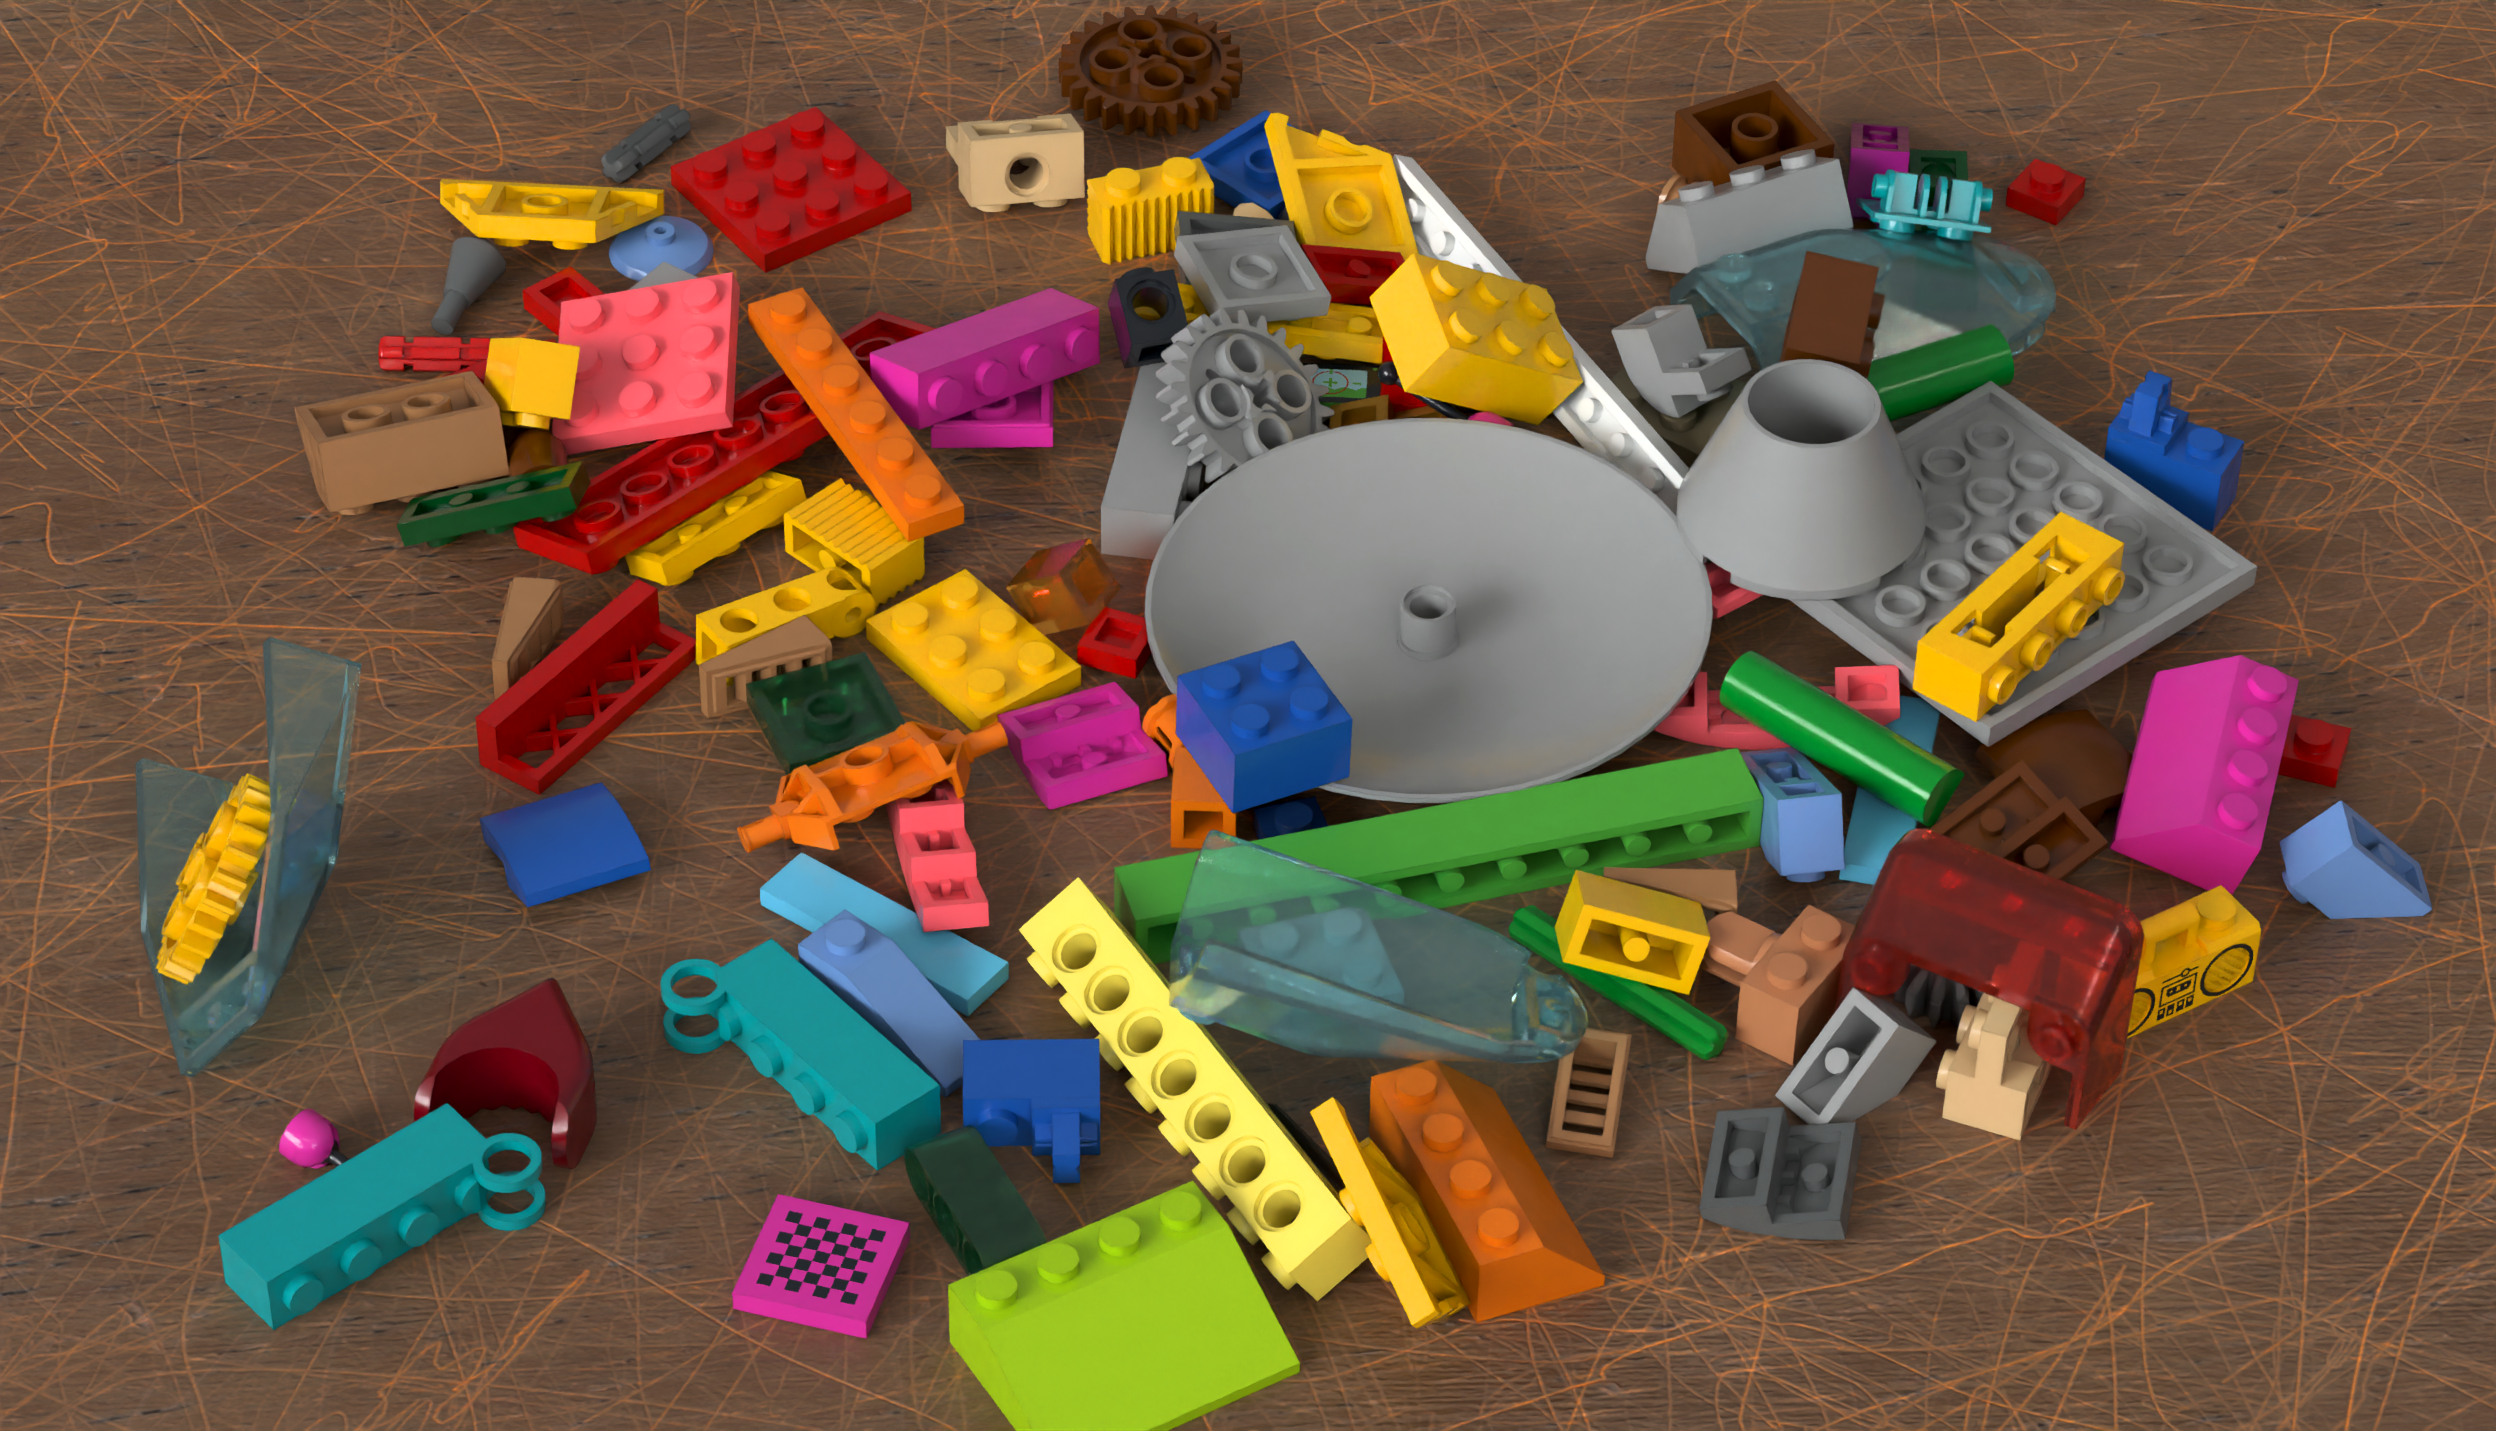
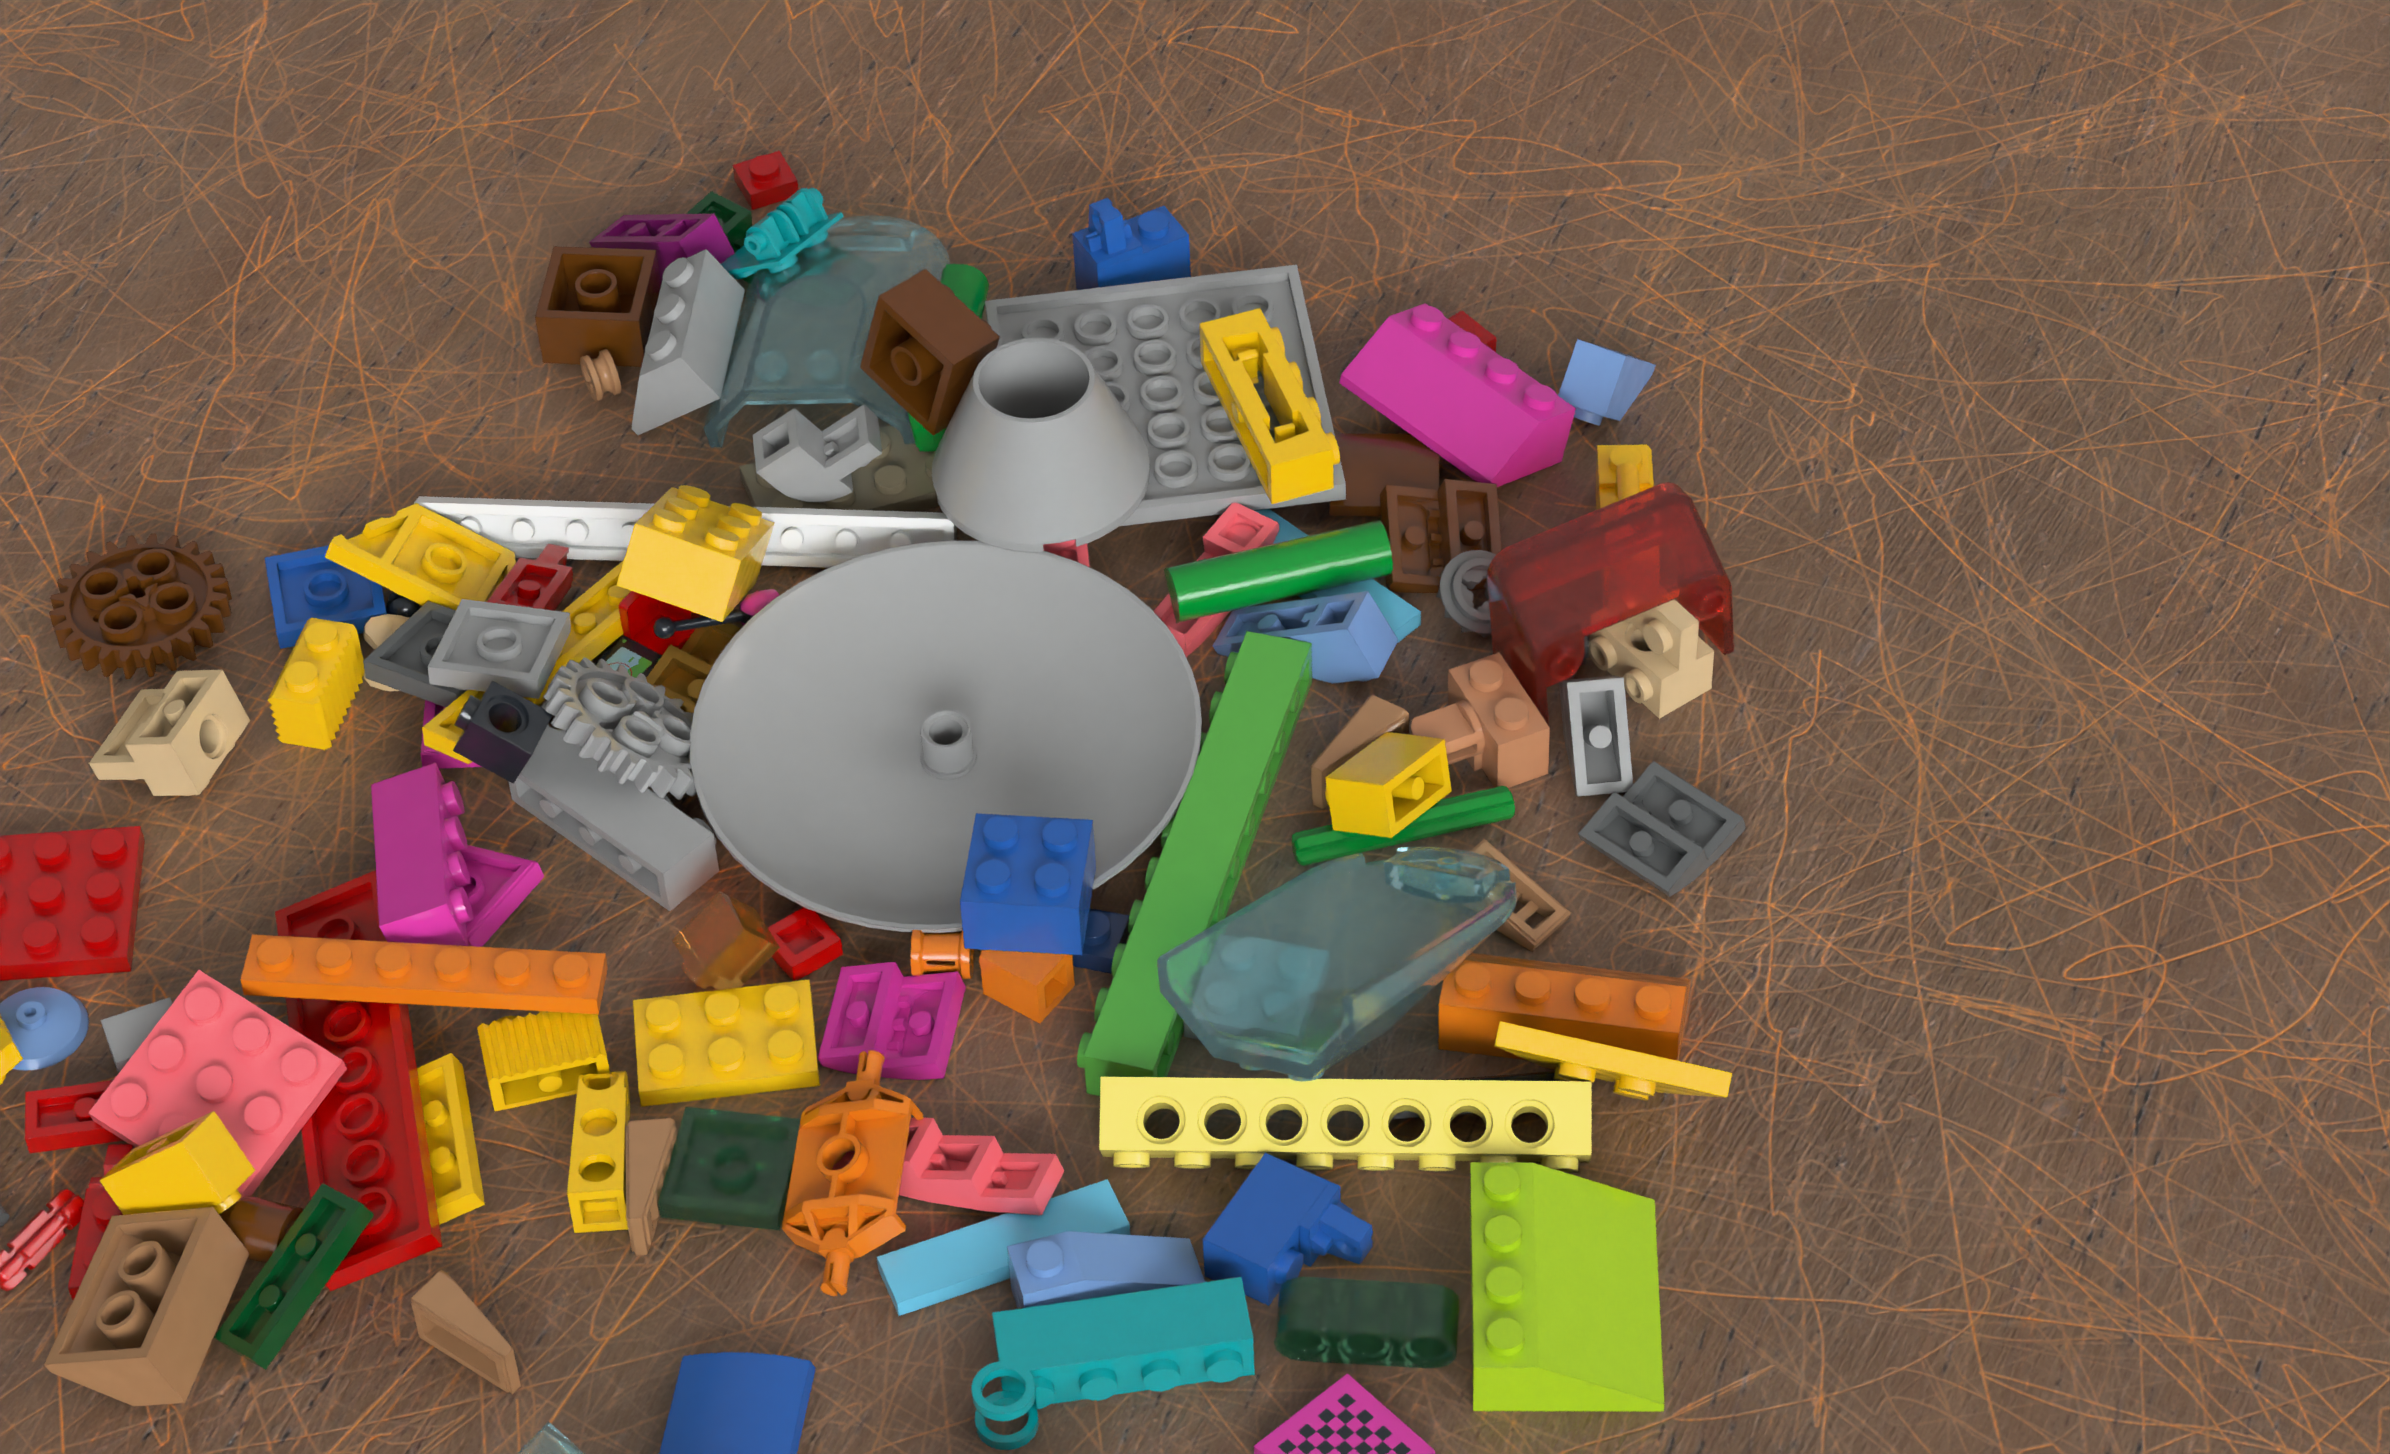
camera: 55 degrees left, 5 degrees up
(568, 684) = (545, 1321): red fence -> none

